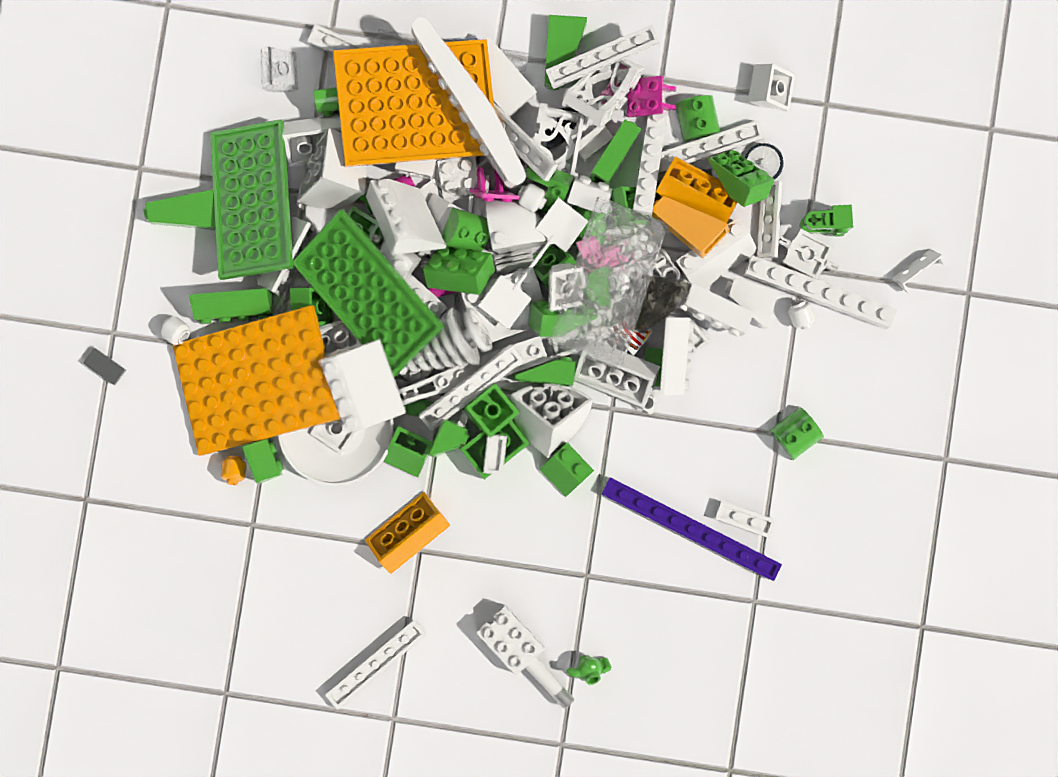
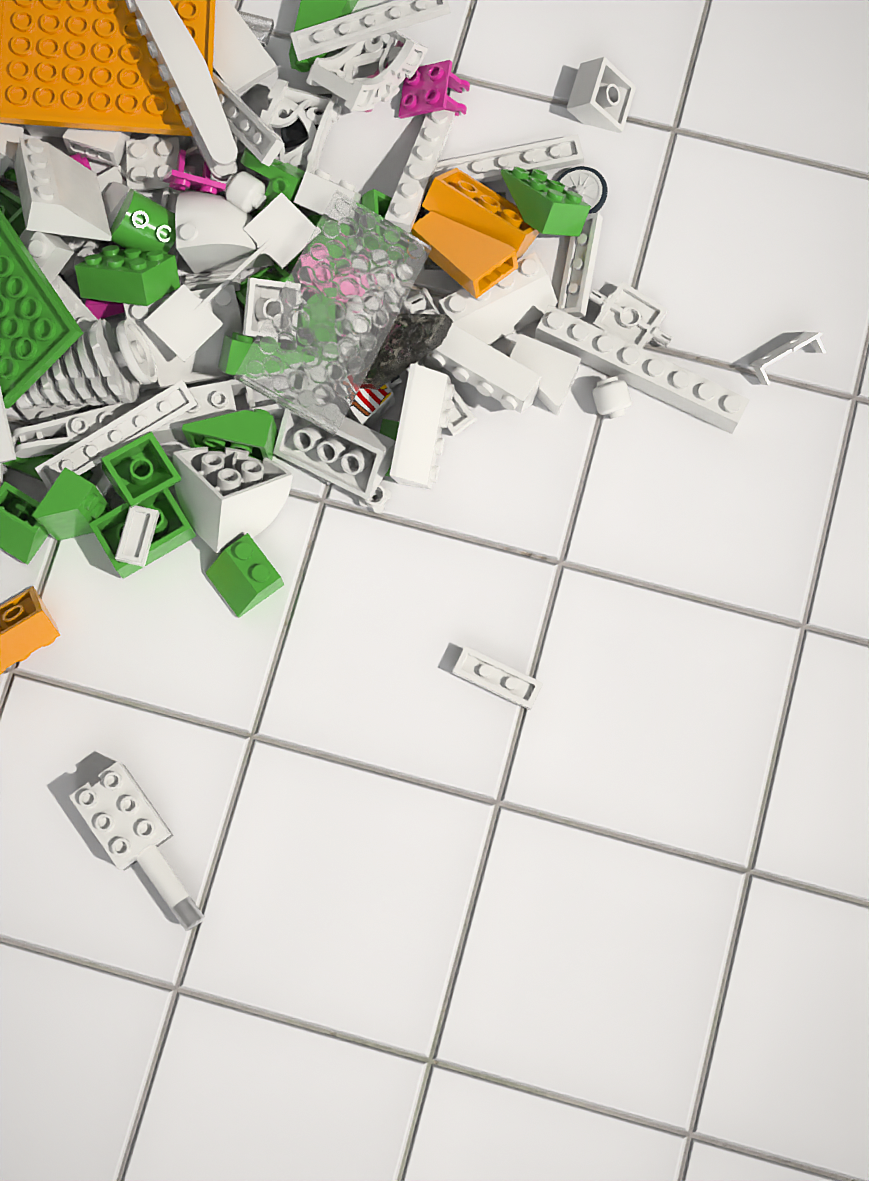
camera: 10 degrees right, 10 degrees down
(589, 669) = (234, 874): bright green piece -> none
(594, 142) = (348, 142): white tile -> none
(615, 152) = (373, 154): bright green slope -> none
(691, 529) = (417, 684): dark purple plate -> none
(697, 117) = (494, 121): bright green brick -> none
(797, 433) = (589, 563): bright green brick -> none
(833, 221) = (671, 274): bright green brick -> none

